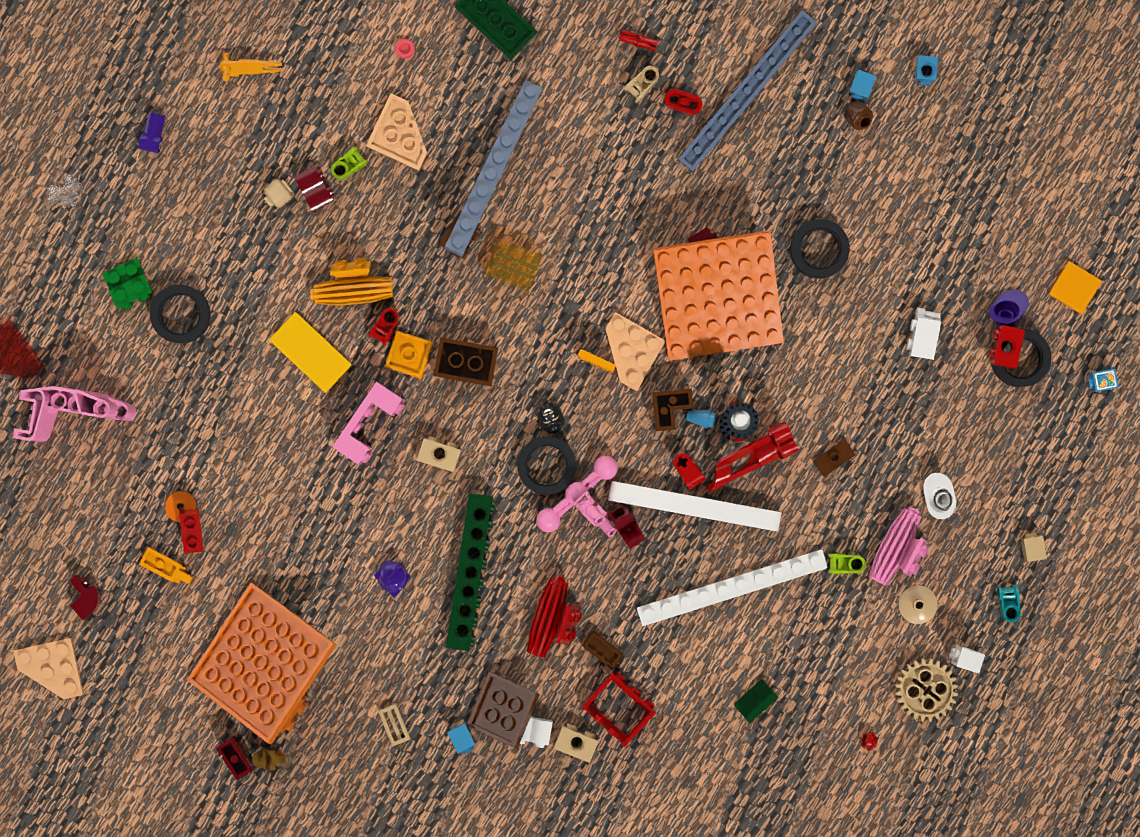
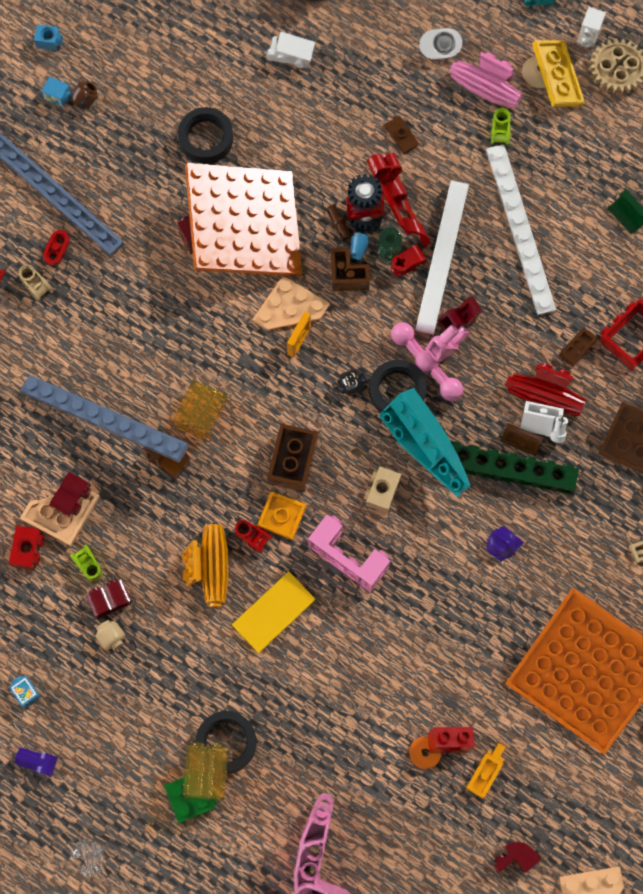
camera: 90 degrees left, 15 degrees down
(146, 296) = (205, 771): none -> clear yellow brick
(219, 115) = (24, 691): none -> dark azure brick
(350, 96) = (22, 537): none -> red brick
(413, 141) = (70, 495): none -> dark red brick
(487, 495) = (425, 439): none -> teal wedge
(499, 593) = (521, 439): none -> reddish brown plate
(518, 615) = (544, 421): none -> white hinge
(693, 448) = (389, 244): none -> clear green piece
(727, 395) = (338, 222): none -> reddish brown pin
(914, 624) = (558, 73): none -> yellow tile

